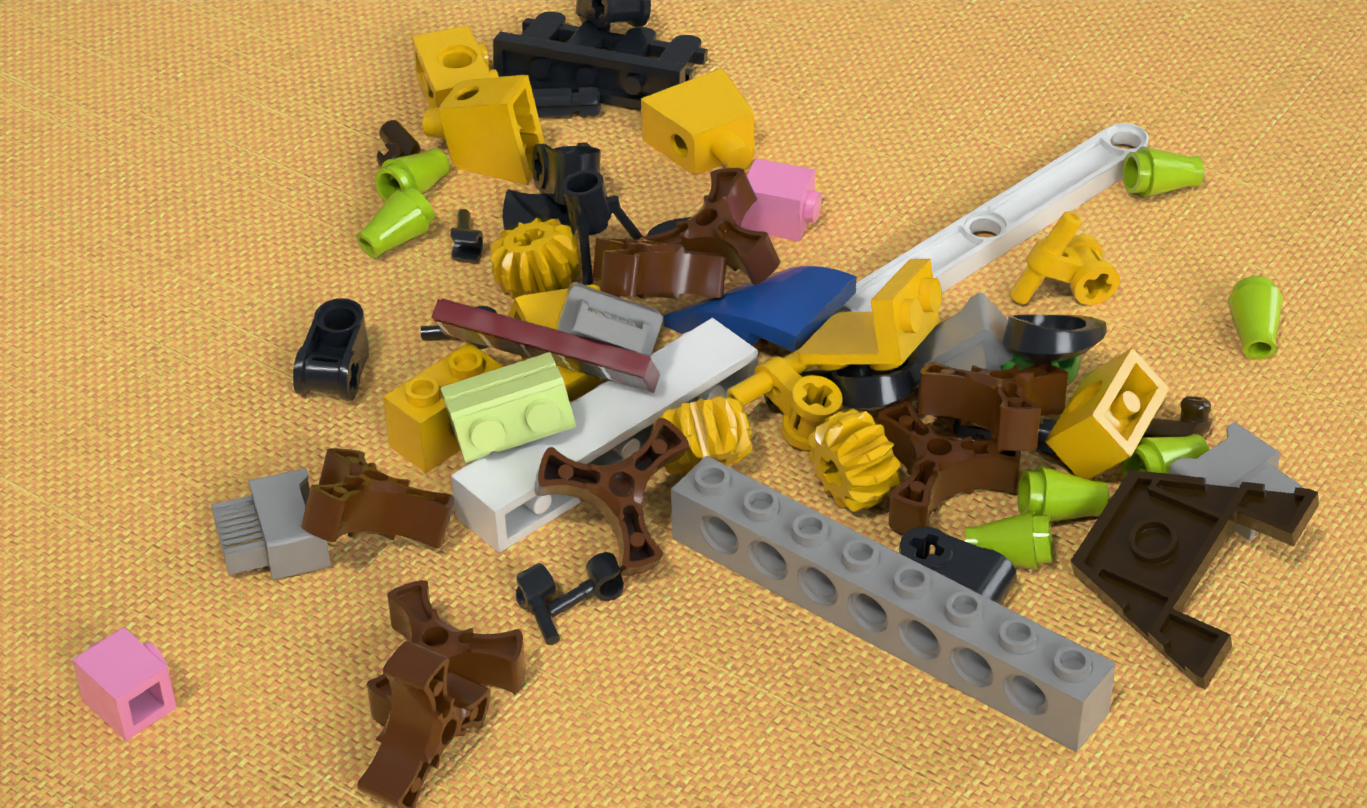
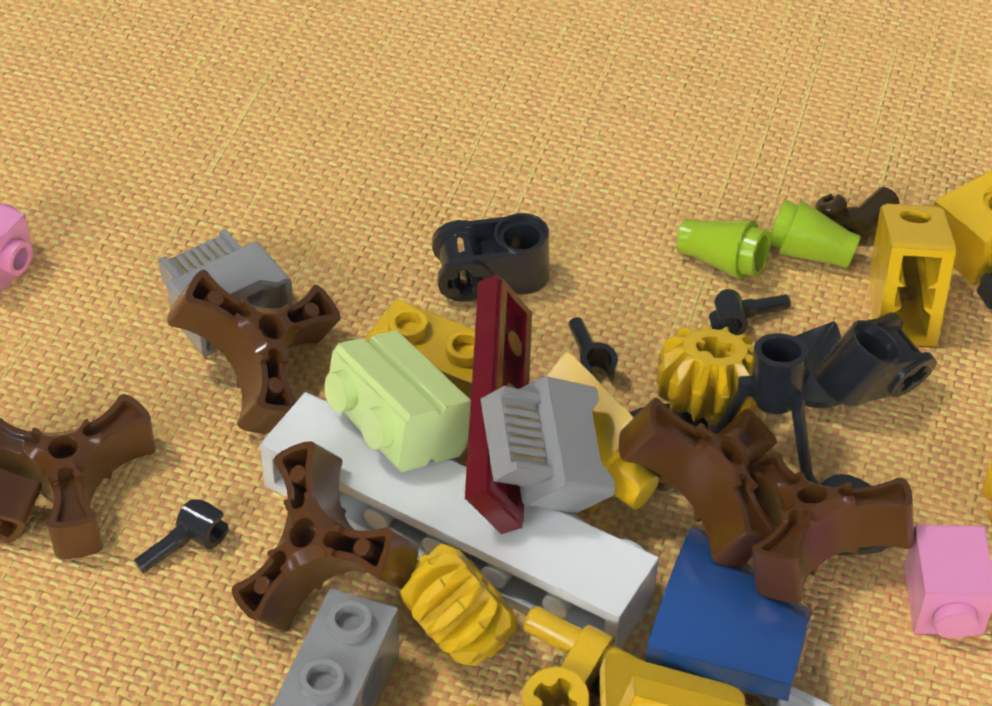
camera: 70 degrees right, 5 degrees up
(603, 582) = (219, 578): black hand -> none

